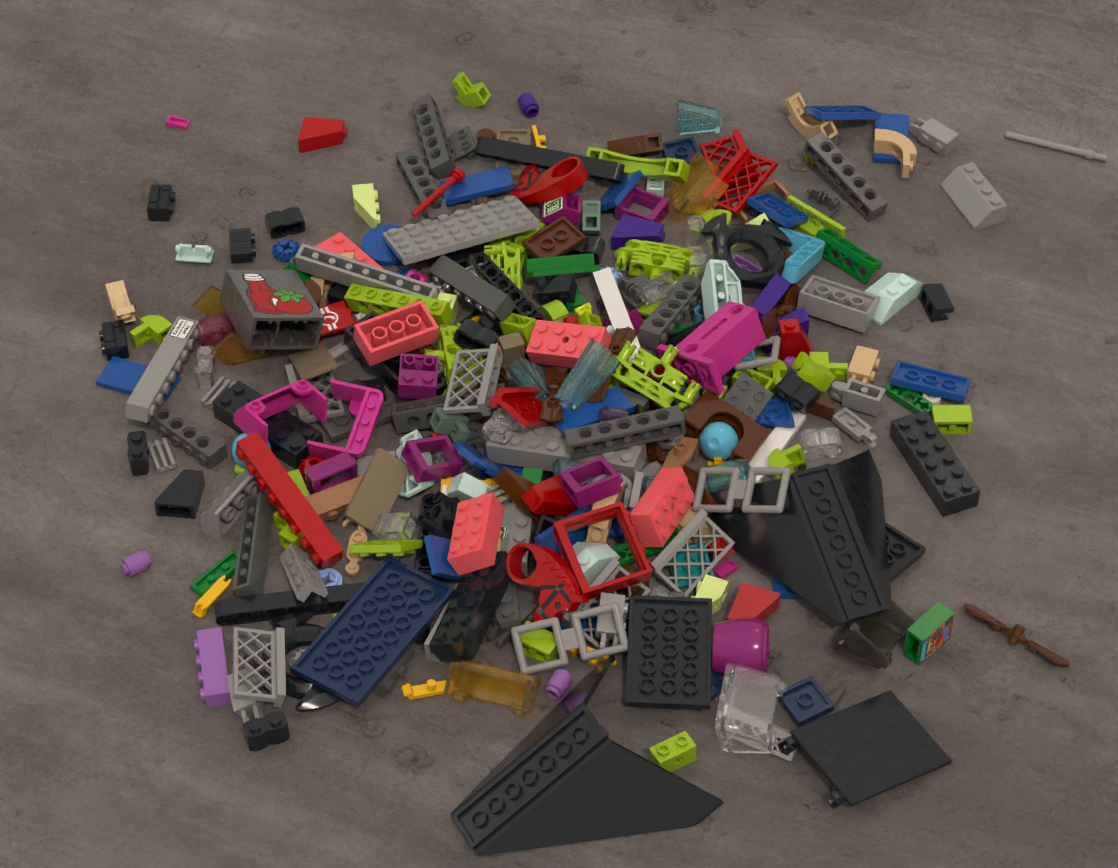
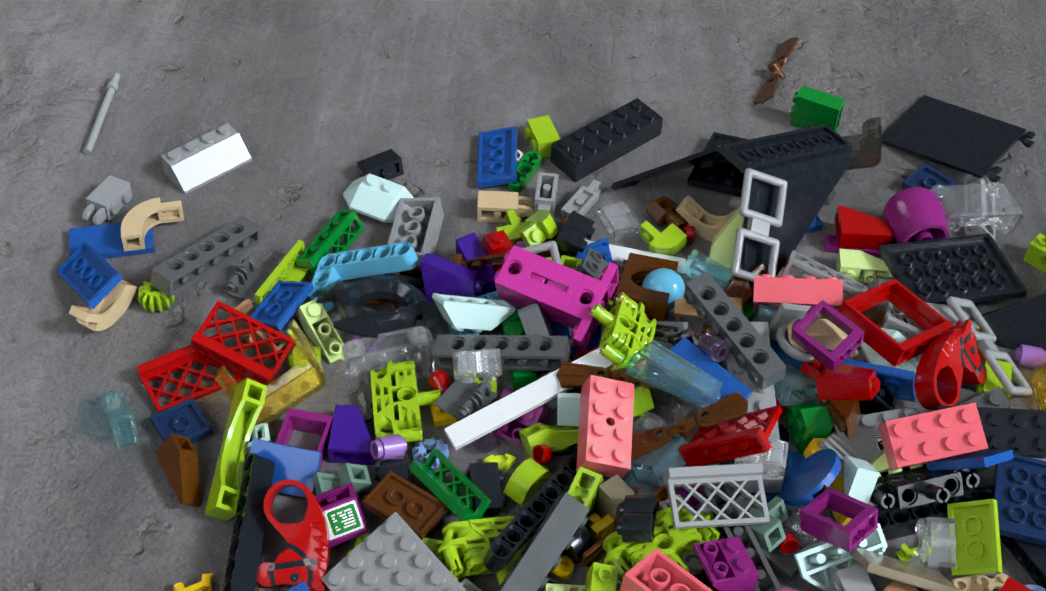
camera: 110 degrees left, 0 degrees up
(608, 240) = (388, 447): none -> medium lavender brick

